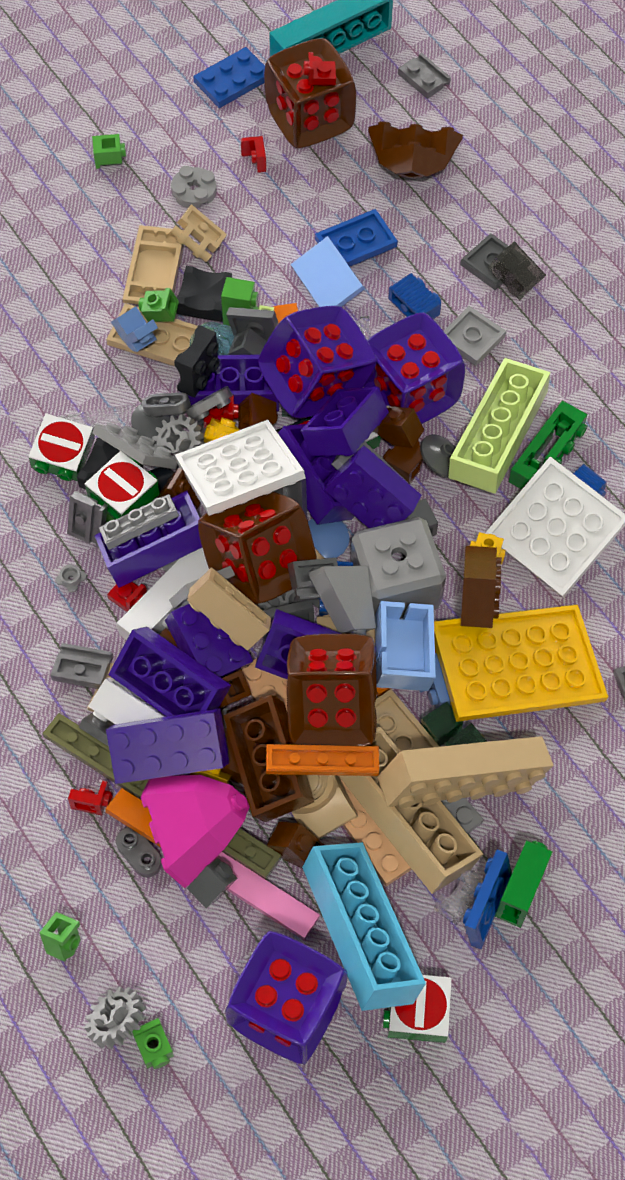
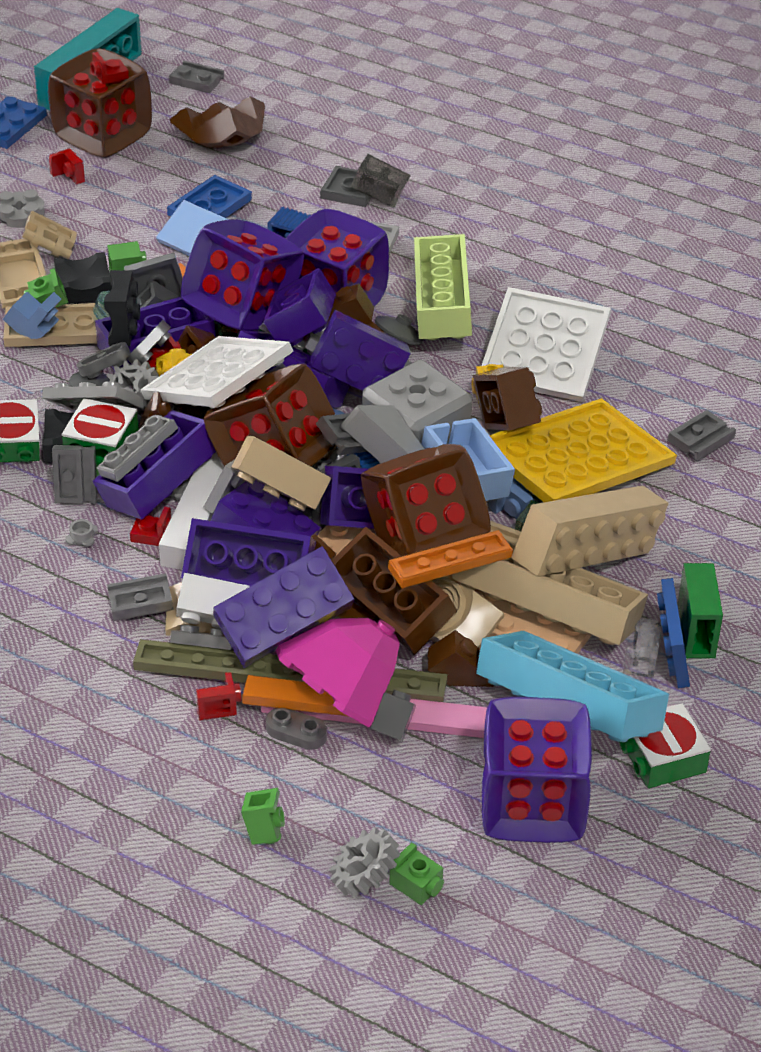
camera: 25 degrees left, 20 degrees down
(570, 426) = (501, 273): green brick -> none

